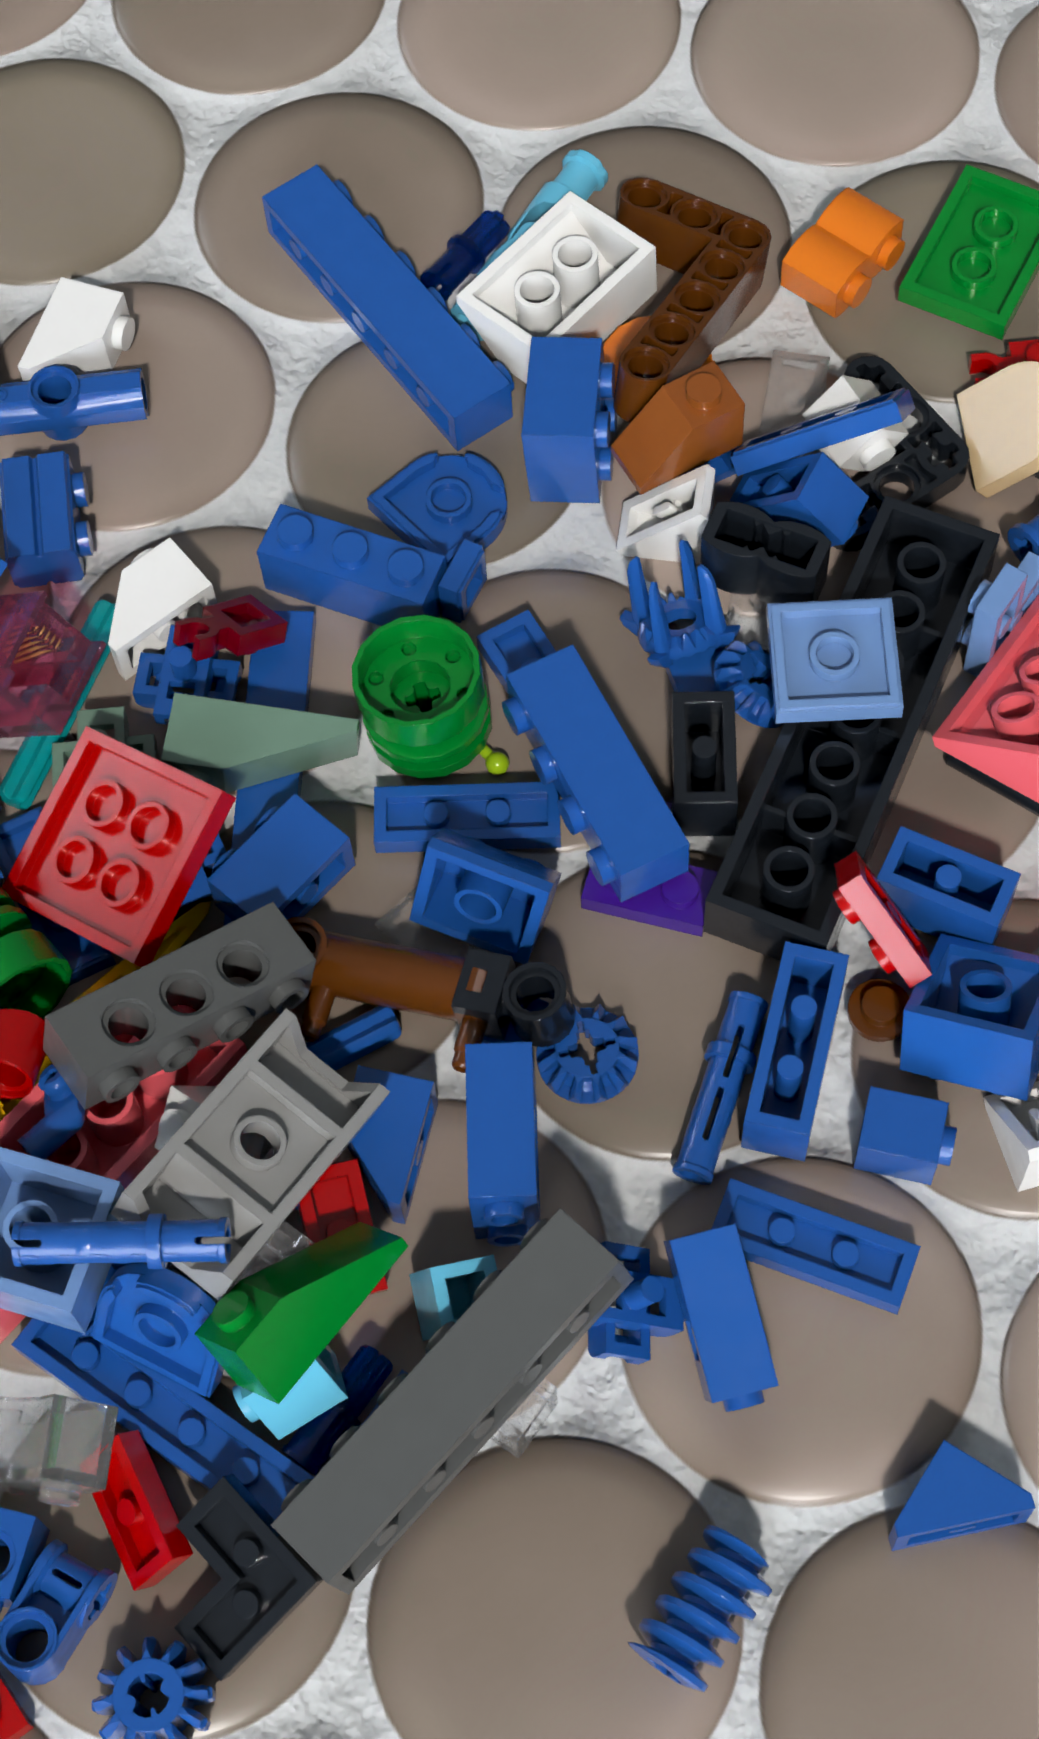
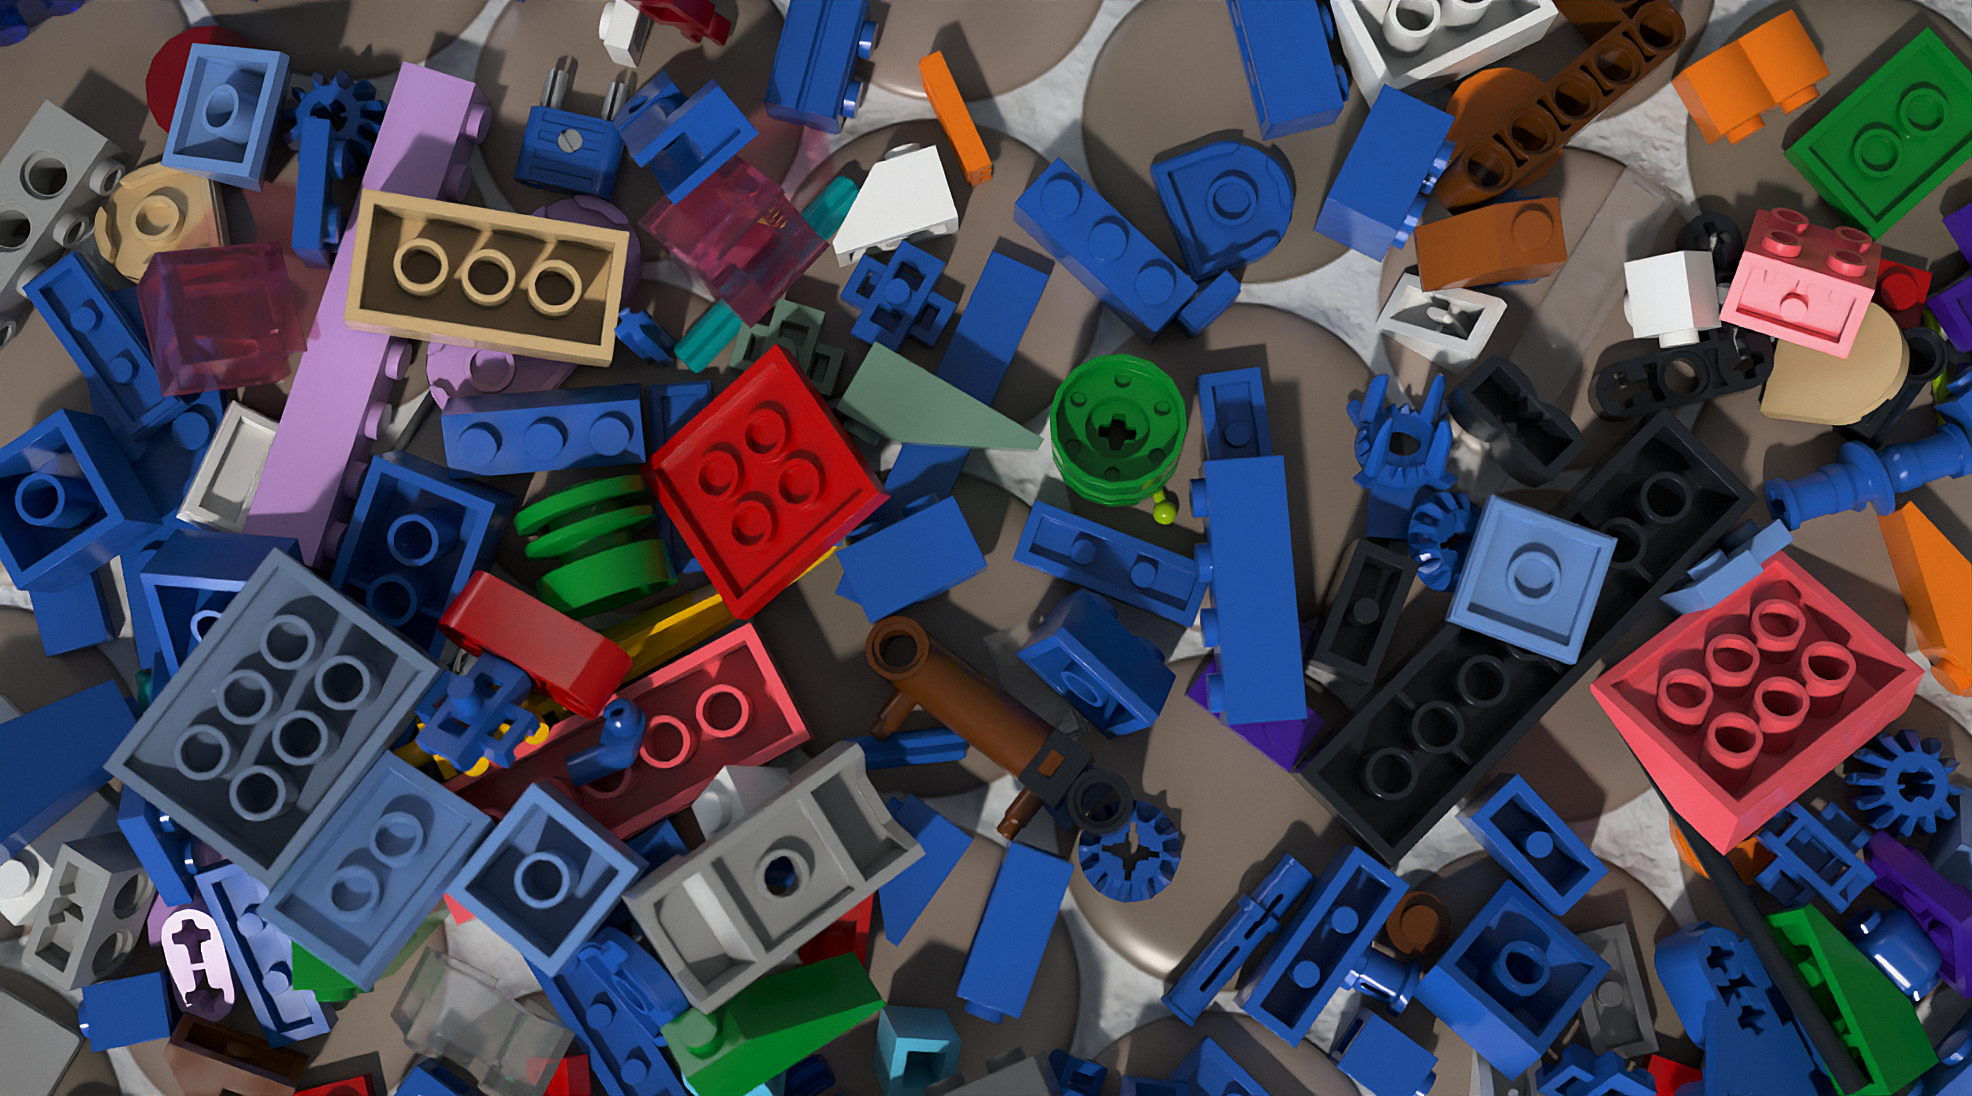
camera: 15 degrees right, 20 degrees up
(122, 1242) = (618, 940): blue pin -> none
(140, 1004) = (859, 655): dark grey brick -> none
(181, 521) = (954, 119): none -> orange tile
(236, 624) = (963, 271): dark red plate -> none
(806, 492) = (1573, 366): blue slope -> none
(823, 431) = (1635, 310): blue tile -> none
(864, 1065) = (1384, 979): none -> blue bush
(893, 939) = (1458, 876): plate -> none
(958, 373) = (1803, 281): none -> coral bracket

